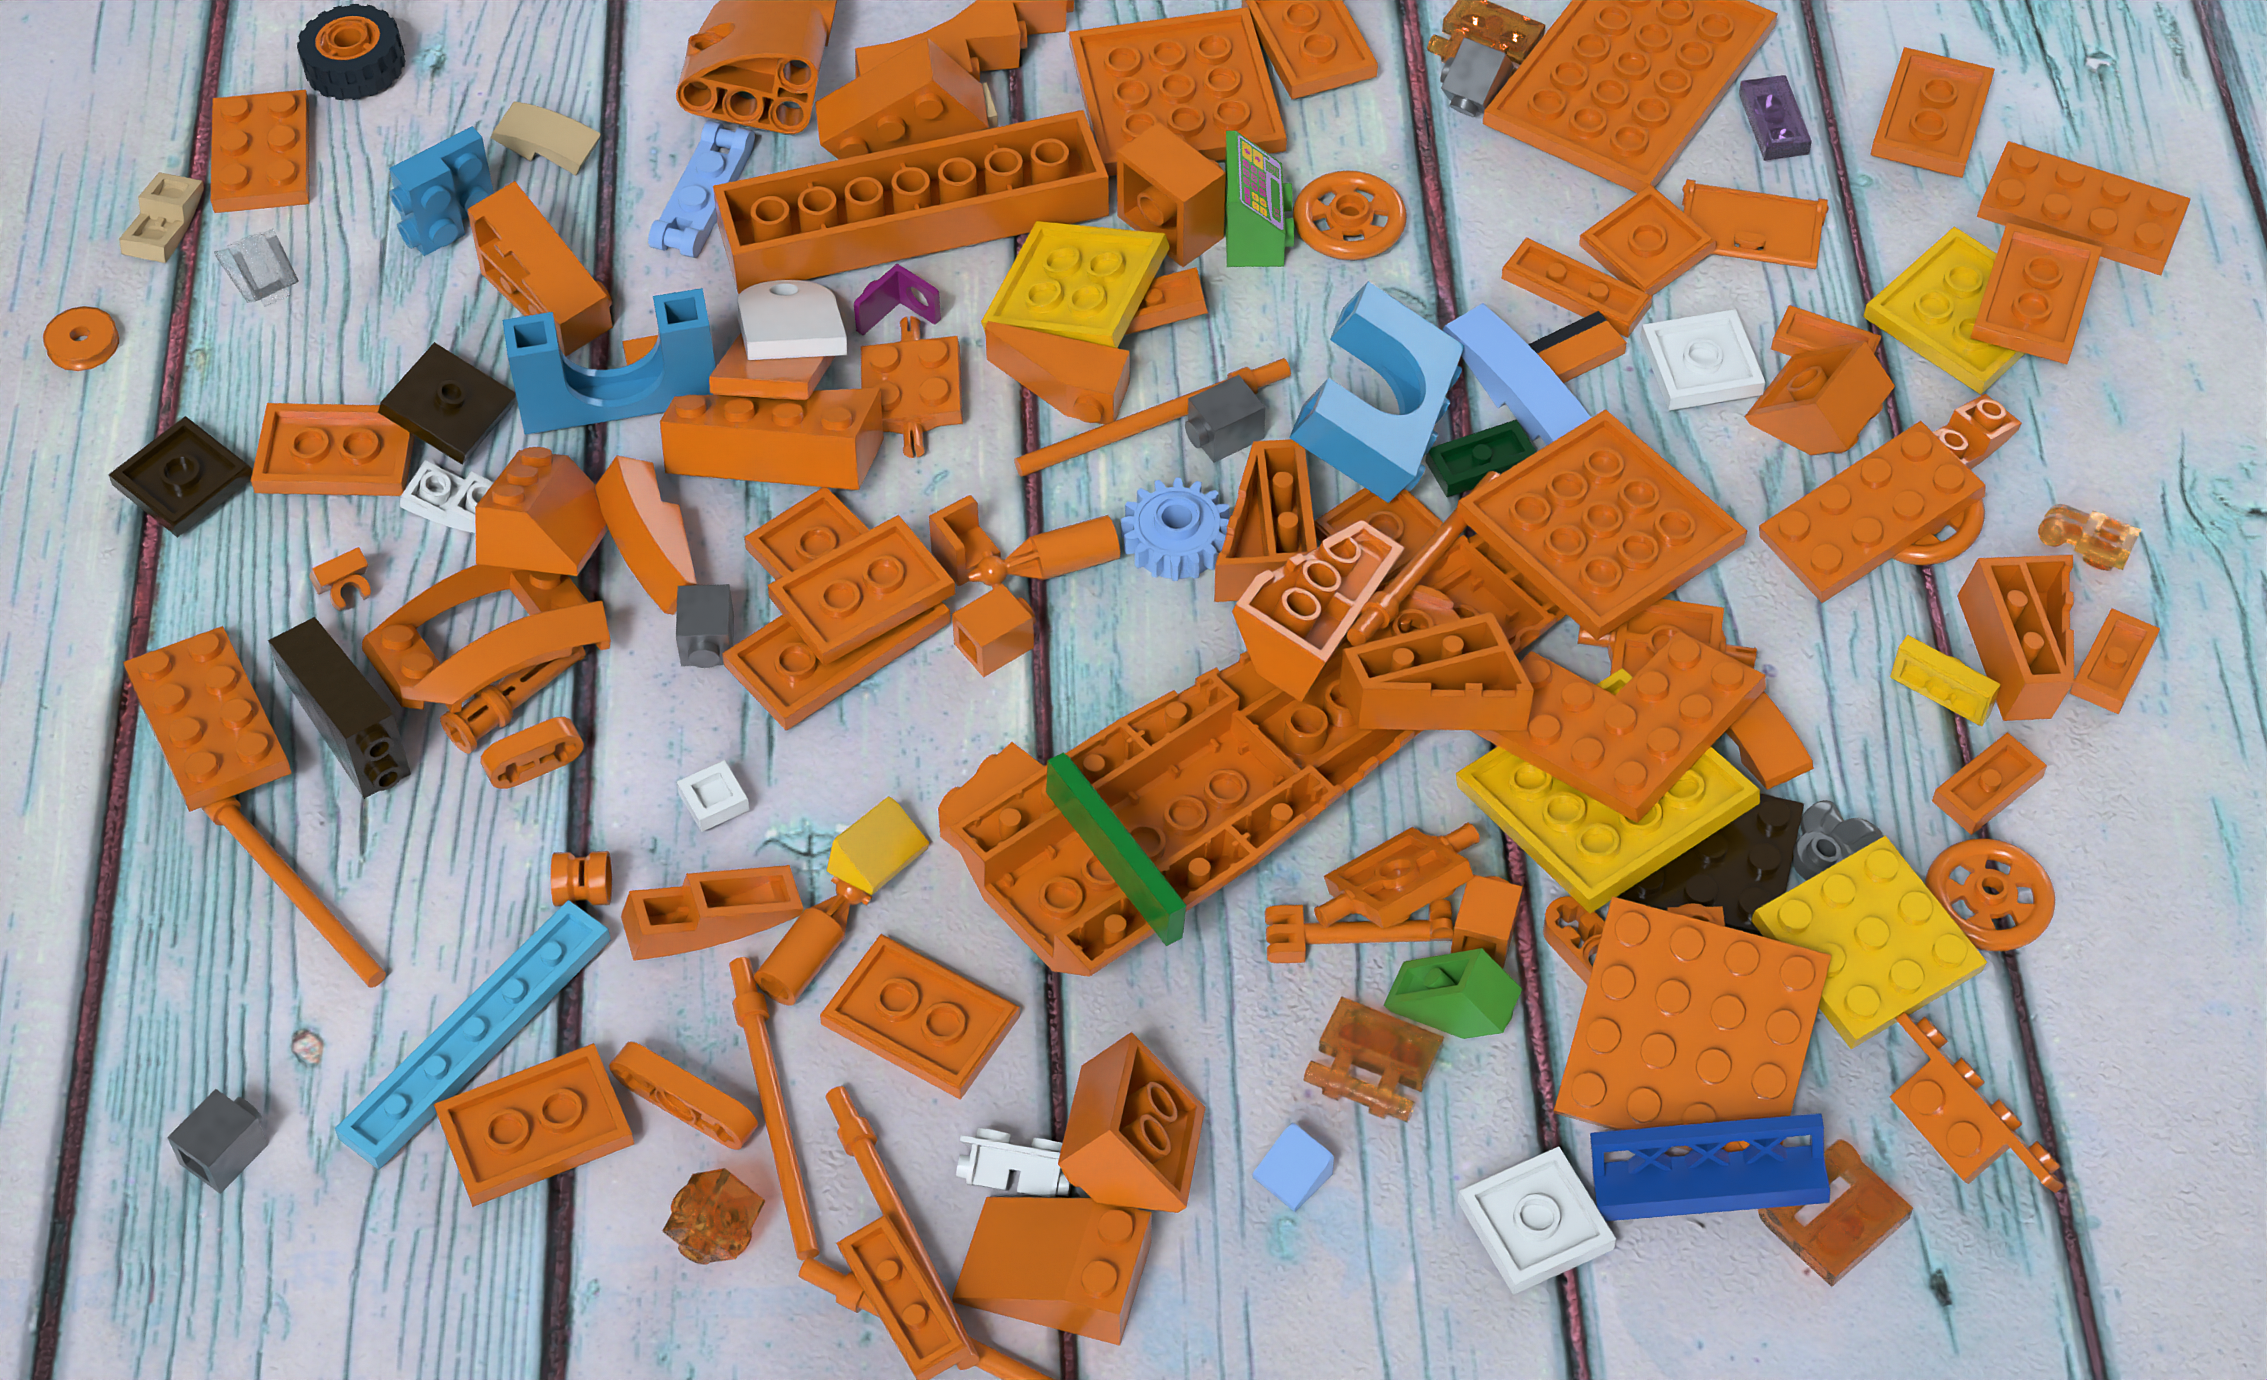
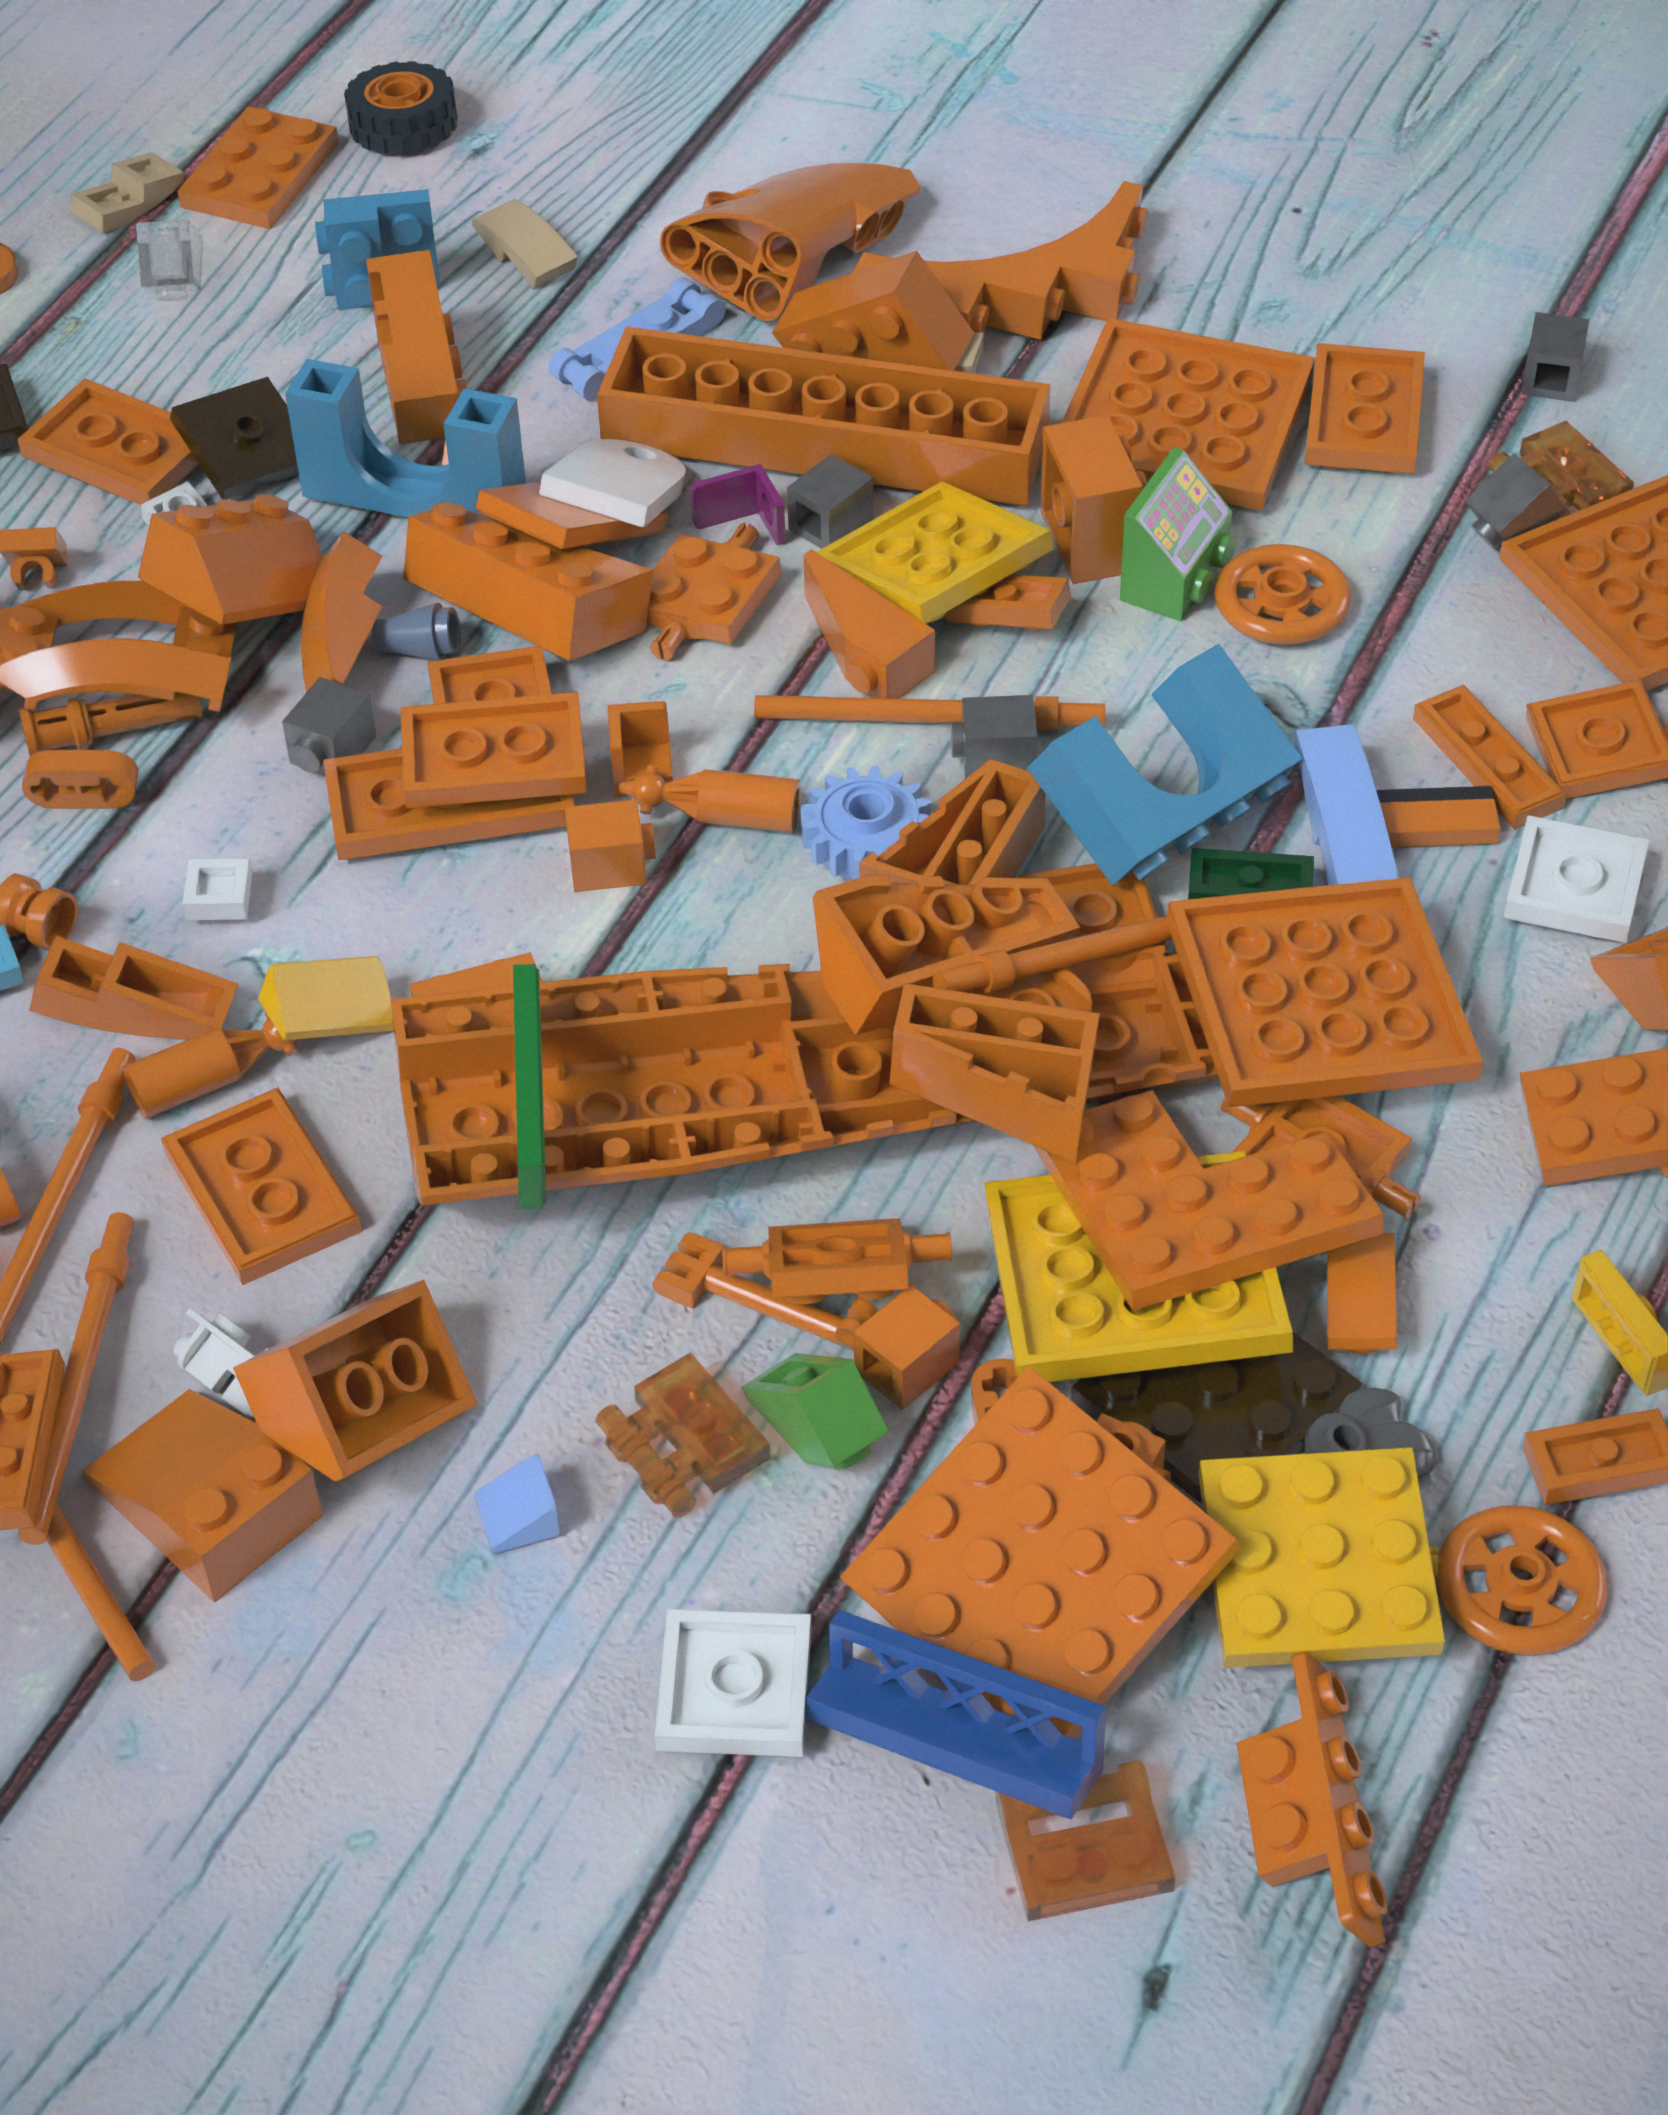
camera: 30 degrees right, 5 degrees down
(716, 513) = (419, 633): none -> sand blue cone
(963, 273) = (830, 501): none -> flat silver brick

